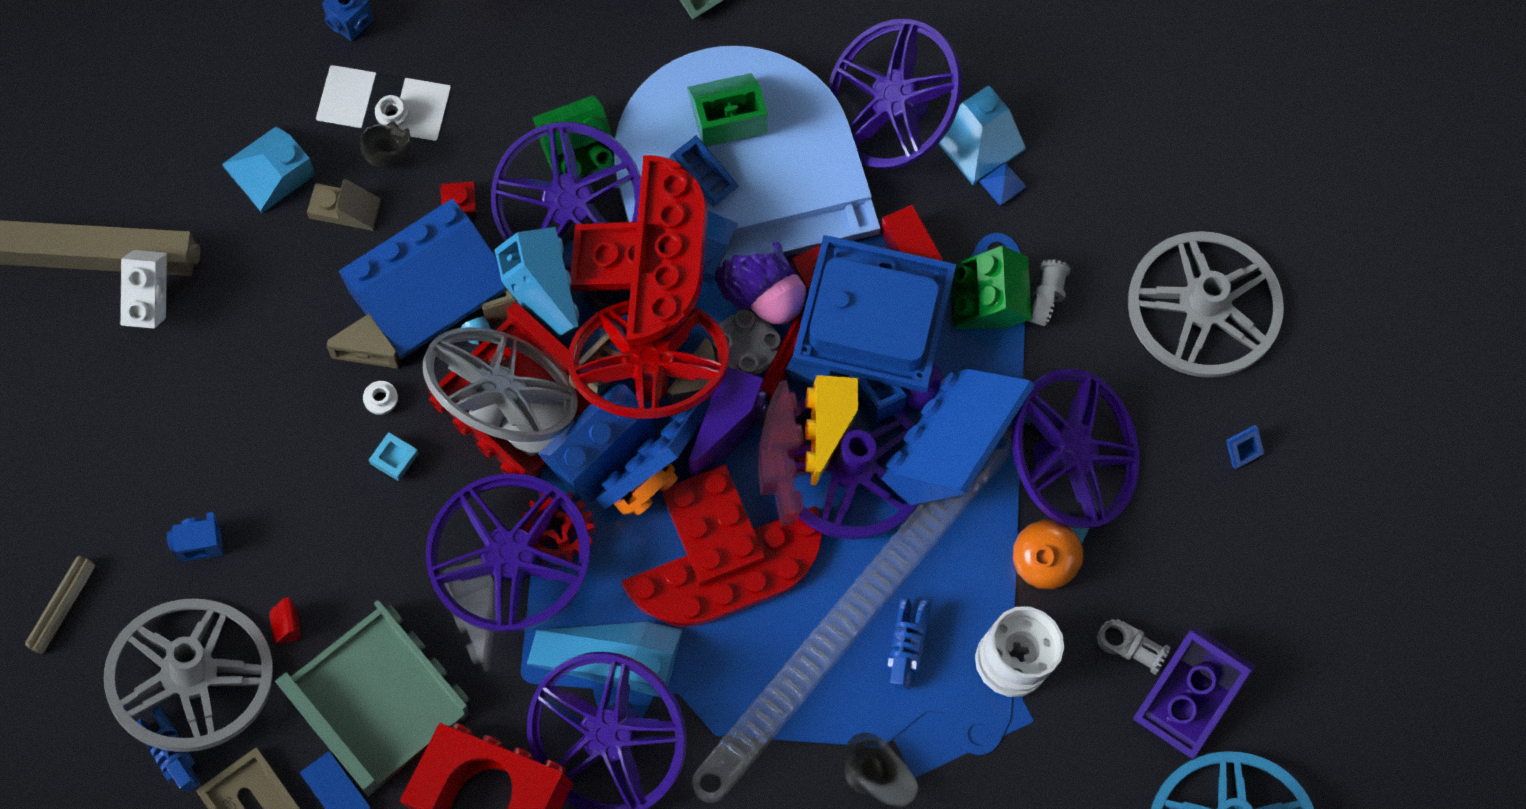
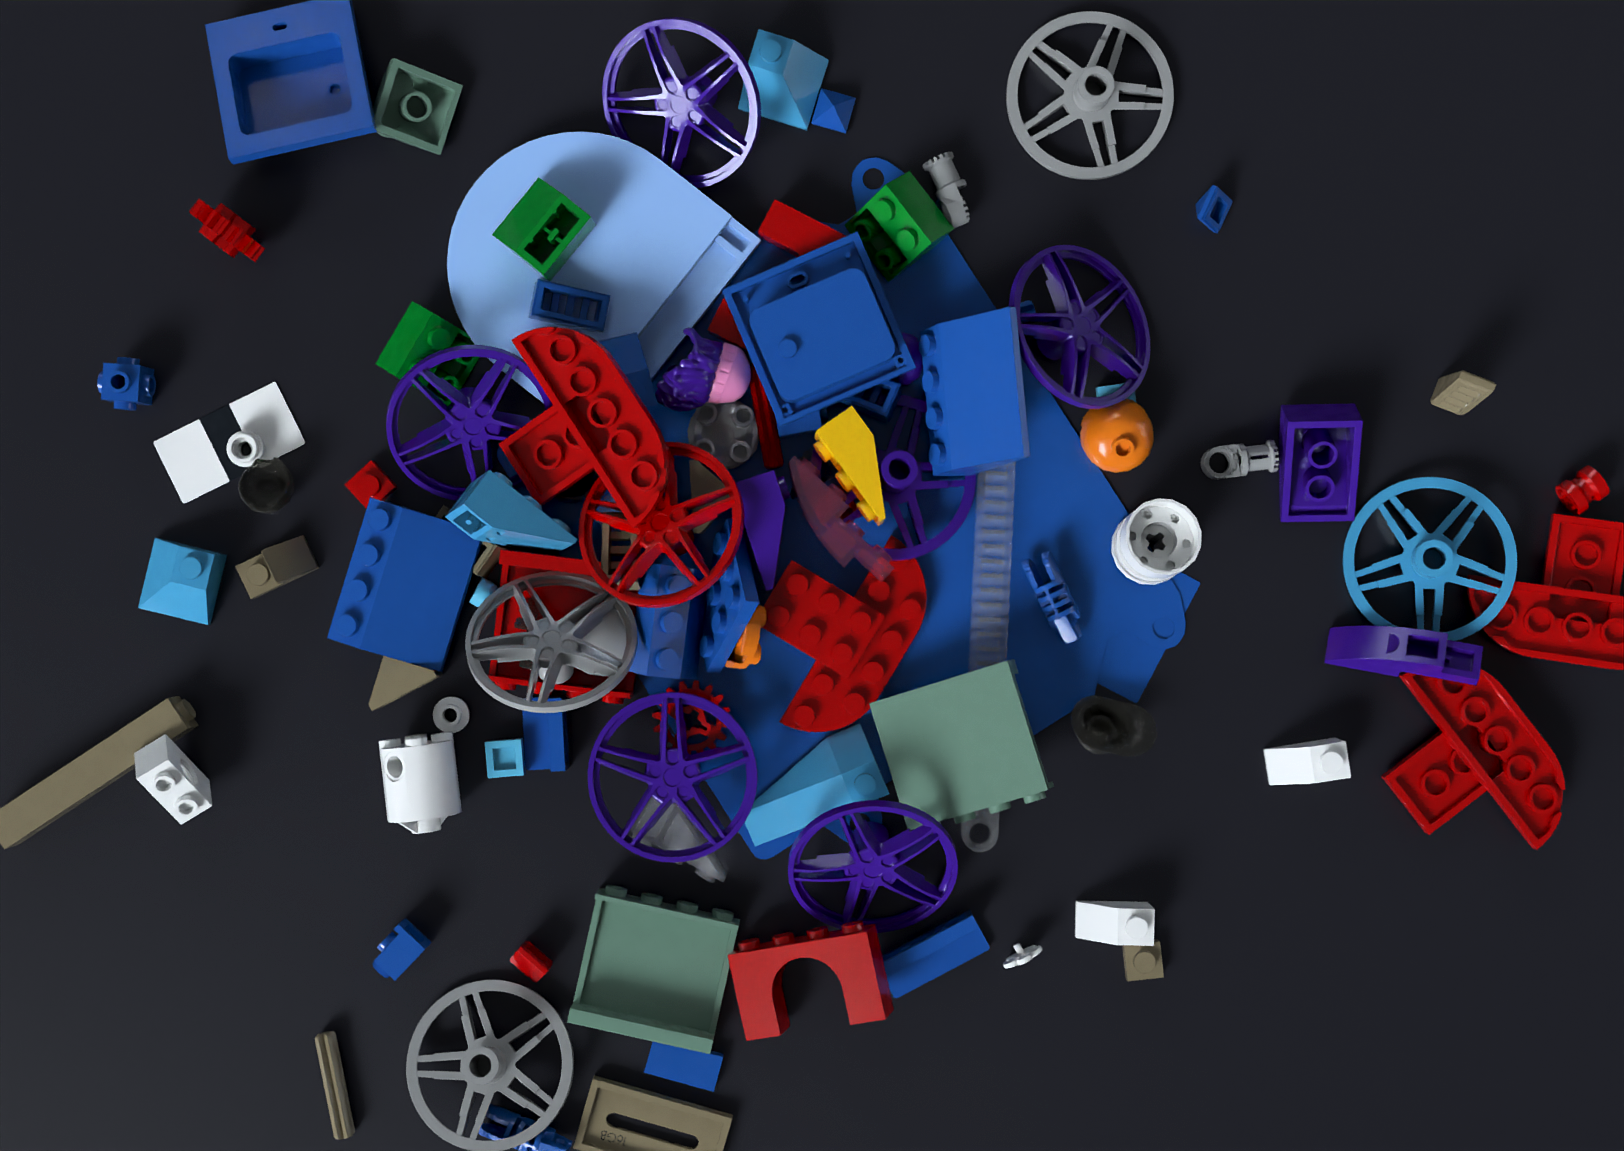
camera: 35 degrees left, 20 degrees up
(319, 421) = (420, 781): none -> white cylinder
(439, 463) = (546, 739): none -> blue panel
(749, 691) = (961, 745): none -> sand green panel
(1349, 714) = (1461, 392): none -> dark tan slope

